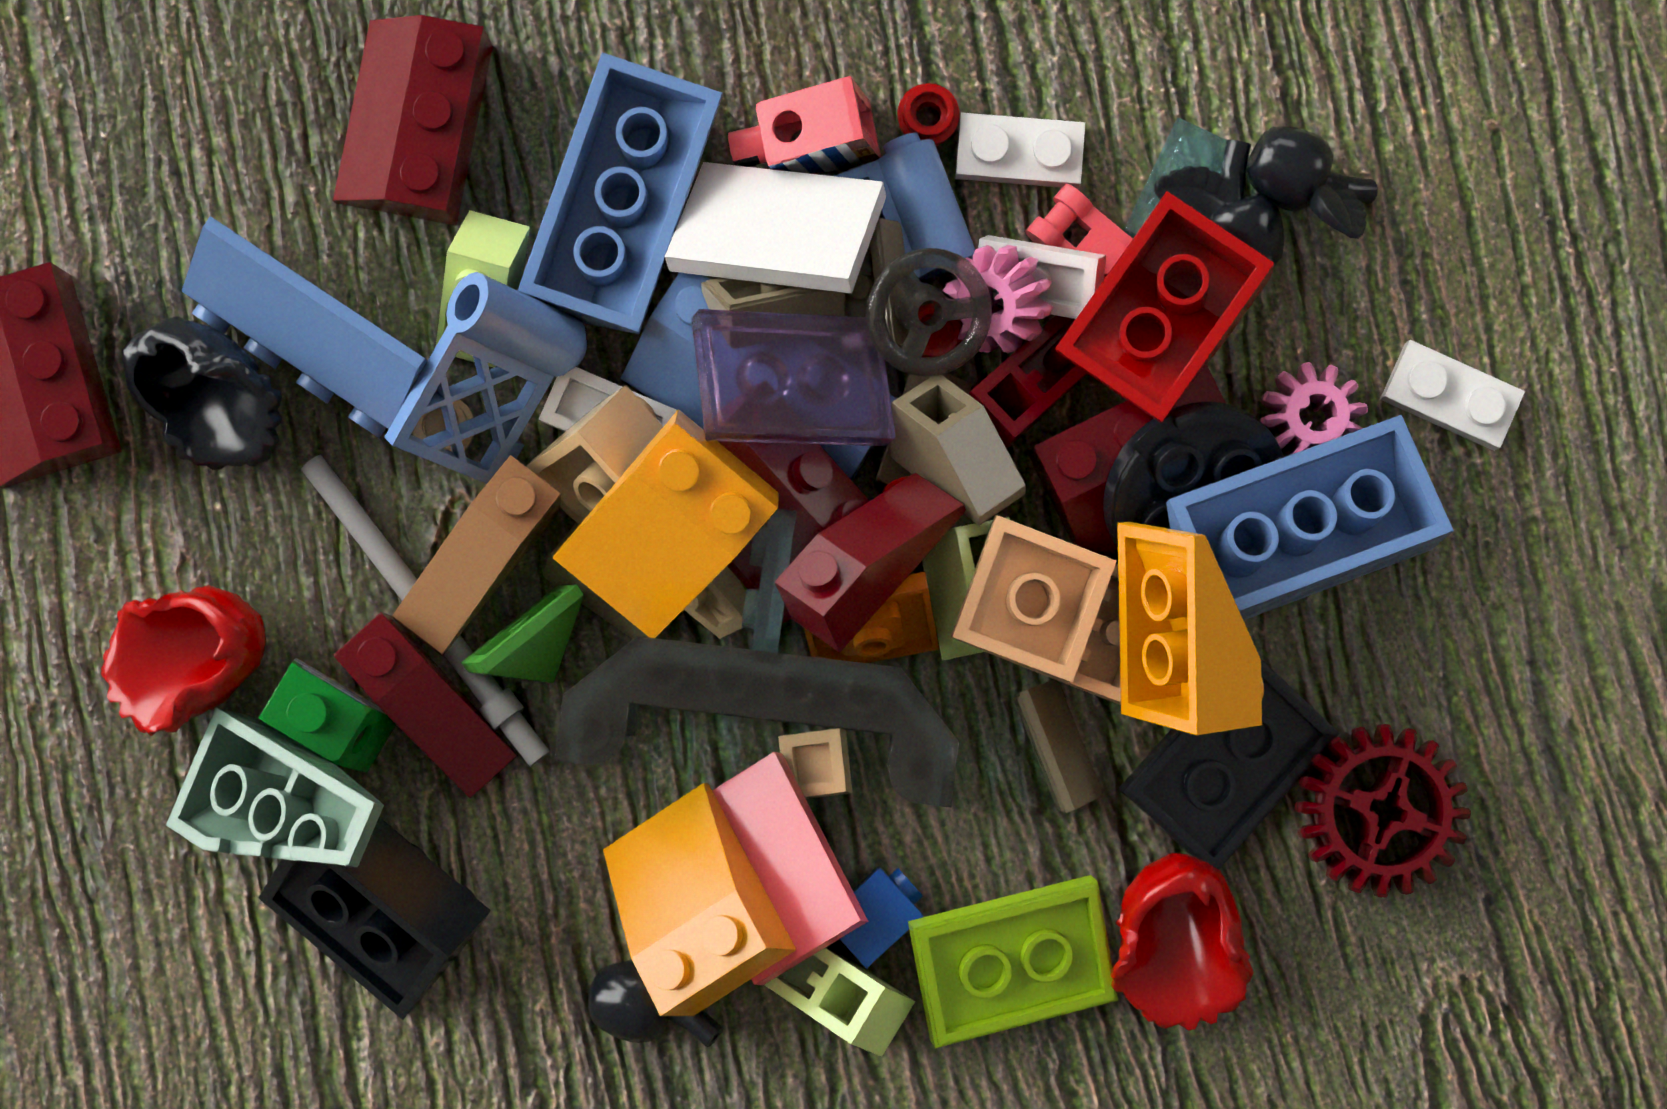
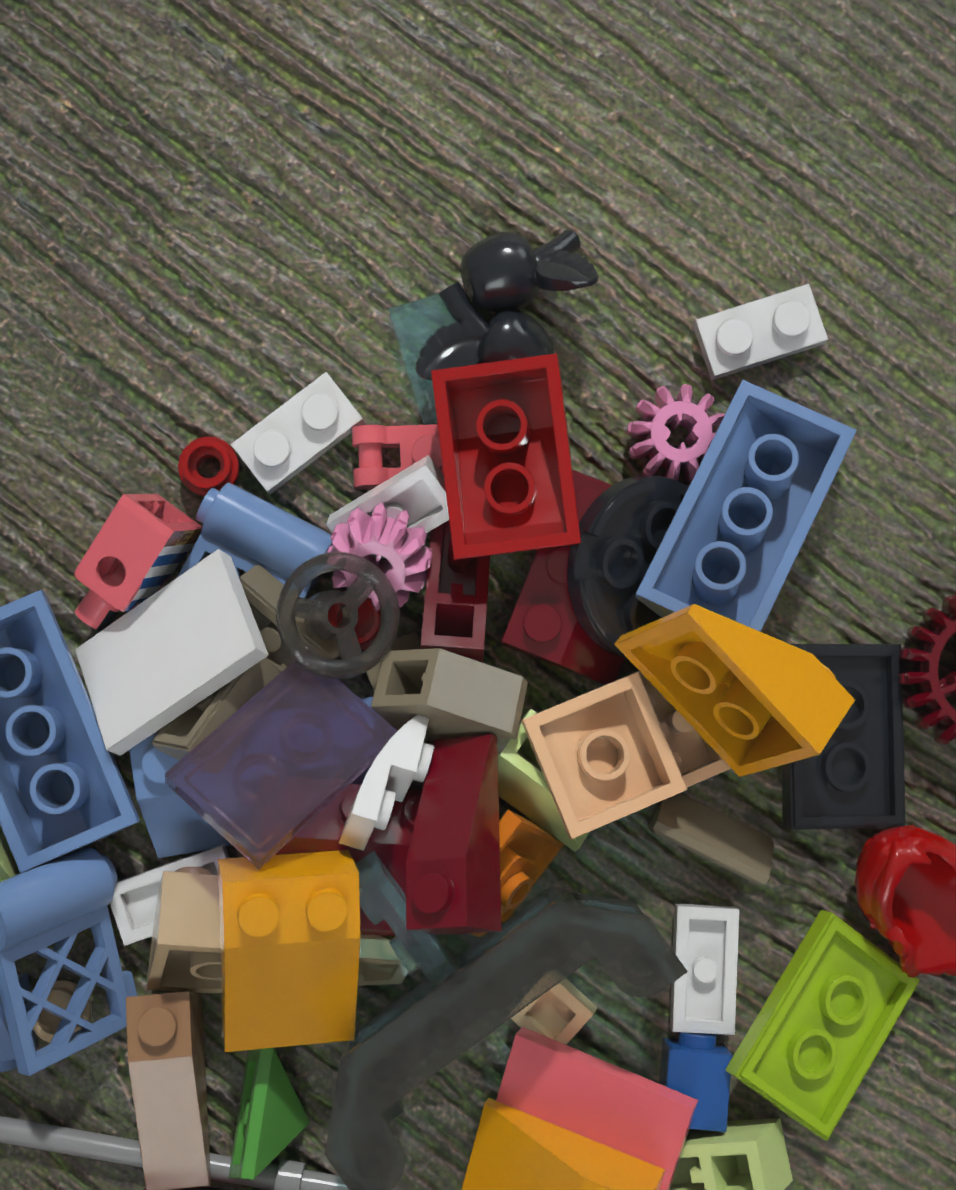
camera: 45 degrees left, 0 degrees up
(855, 467) = (387, 780): none -> white slope
(960, 839) = (708, 948): none -> white plate

